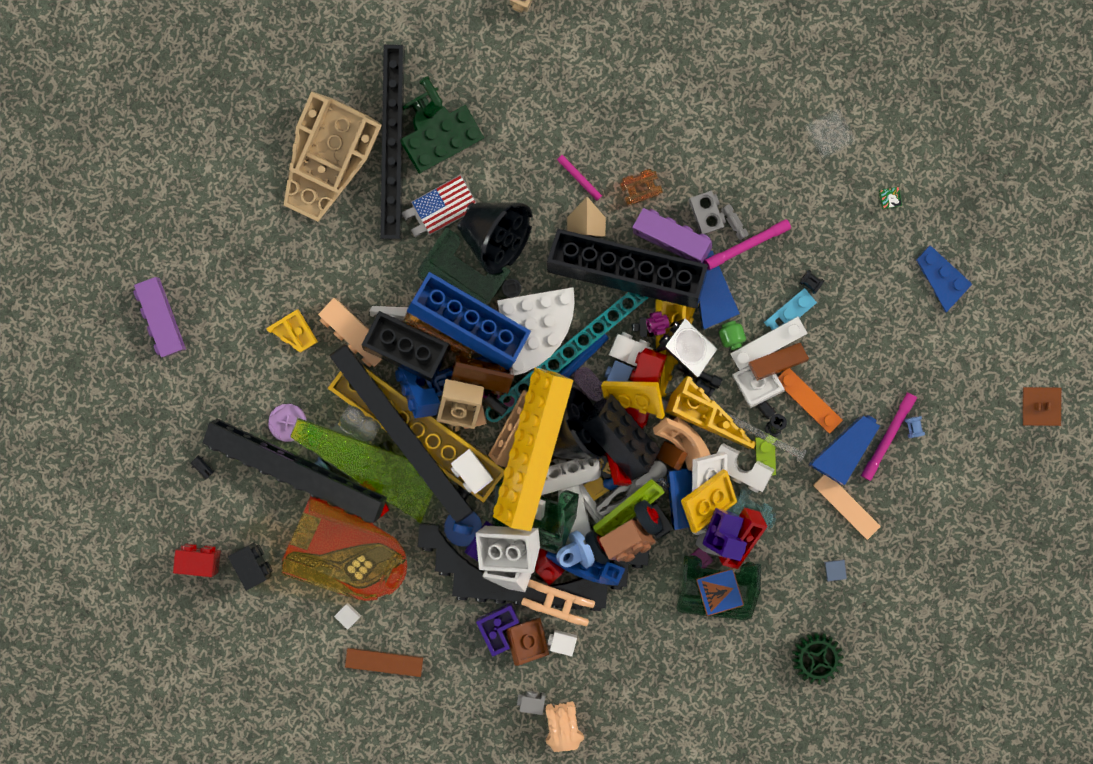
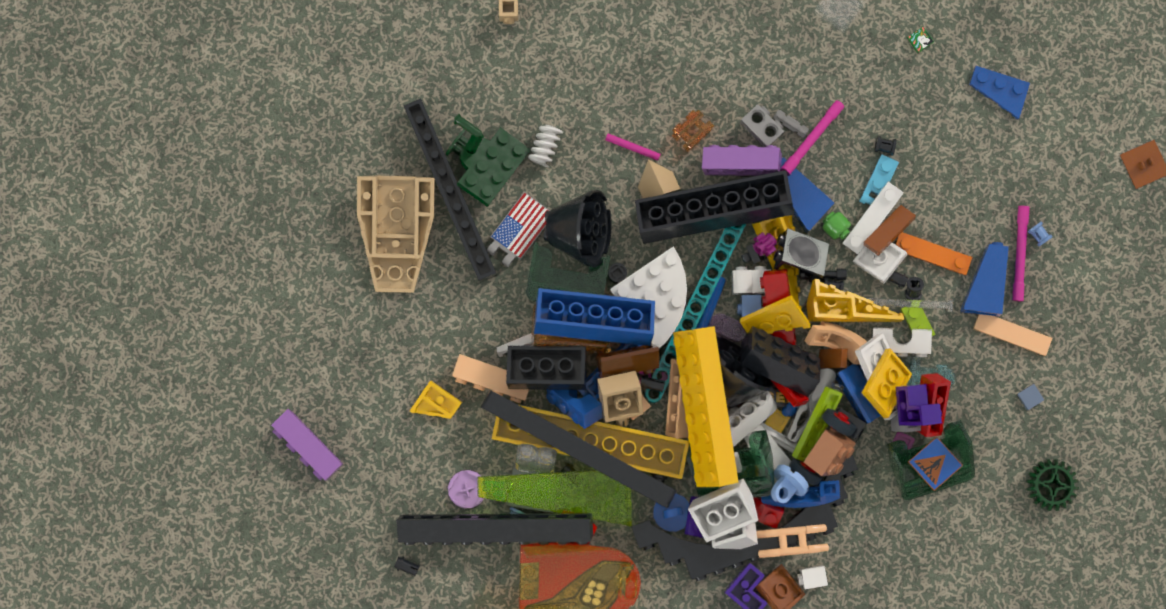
camera: 30 degrees left, 5 degrees down
(471, 471) = (658, 454): white brick -> none
(499, 139) = (544, 145): none -> white piece

